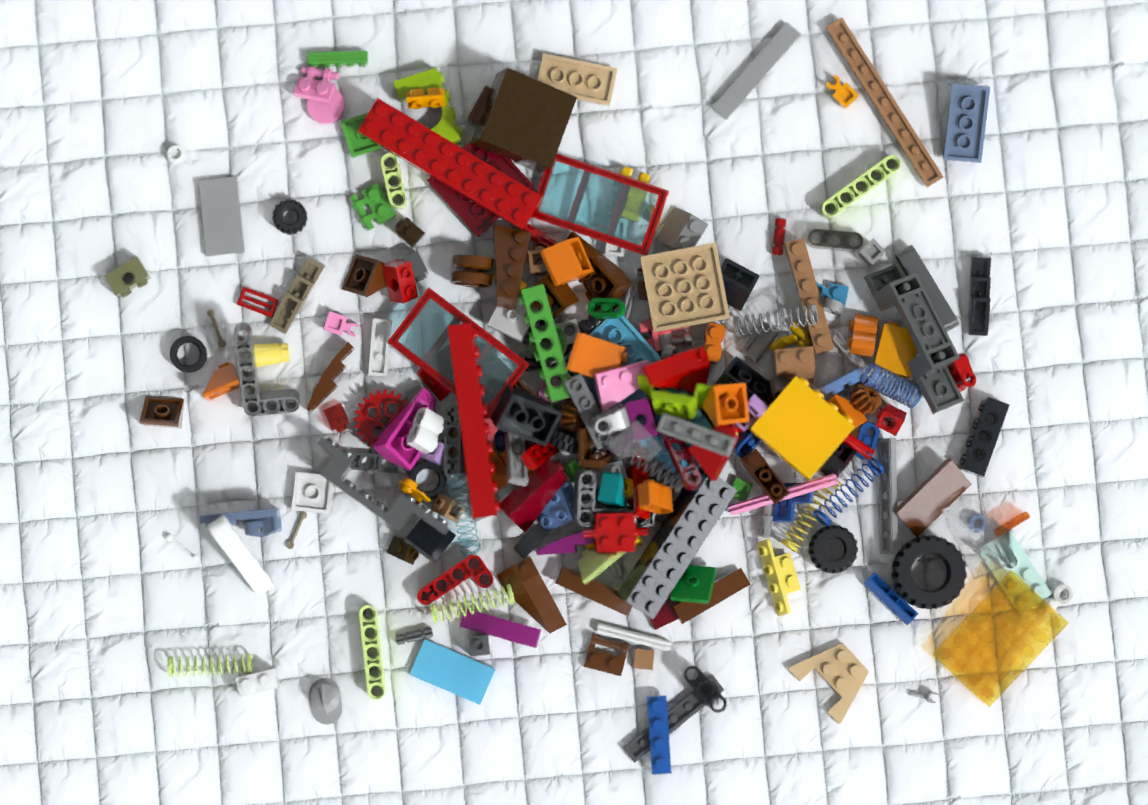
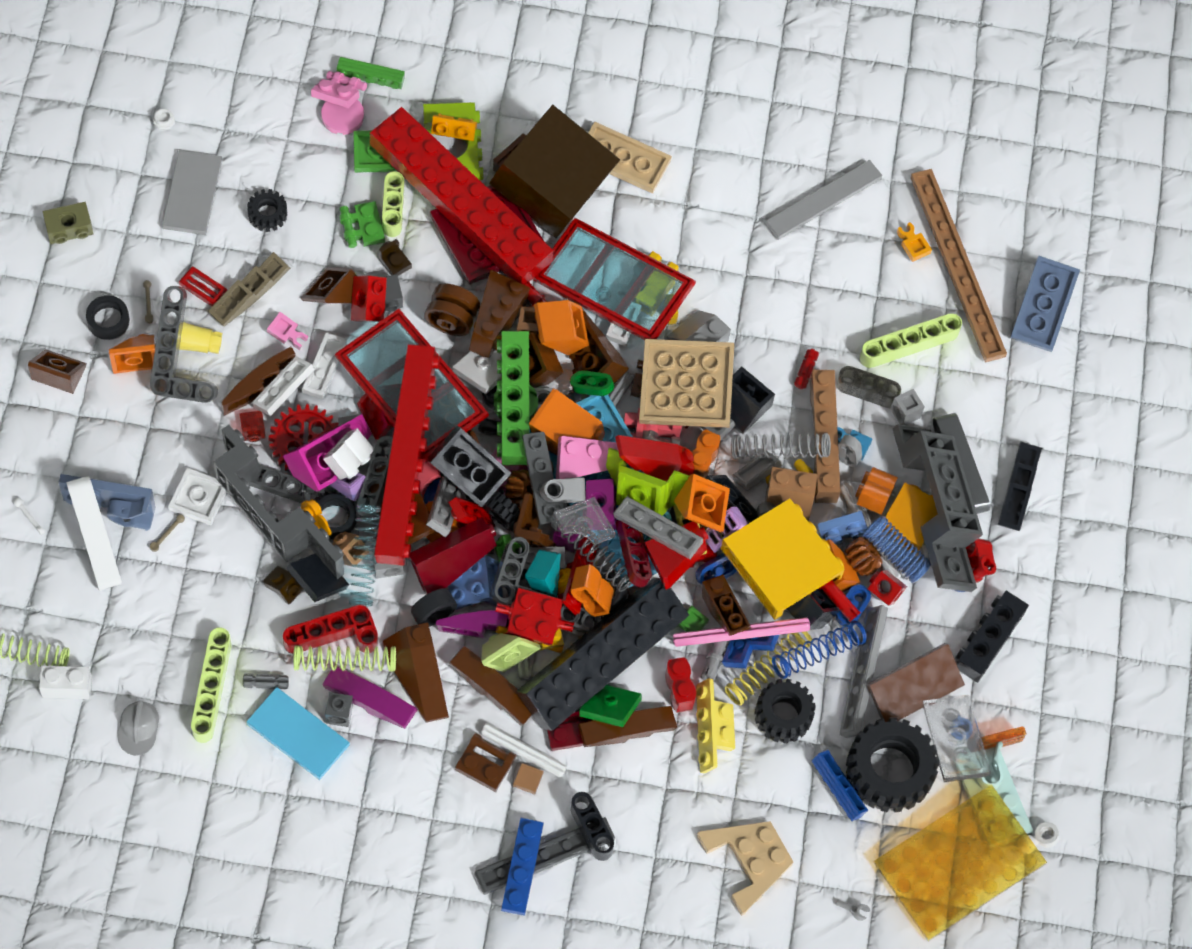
camera: 10 degrees right, 20 degrees down
(352, 377) = (283, 386): none -> white plate
(741, 544) = (679, 682): none -> red brick

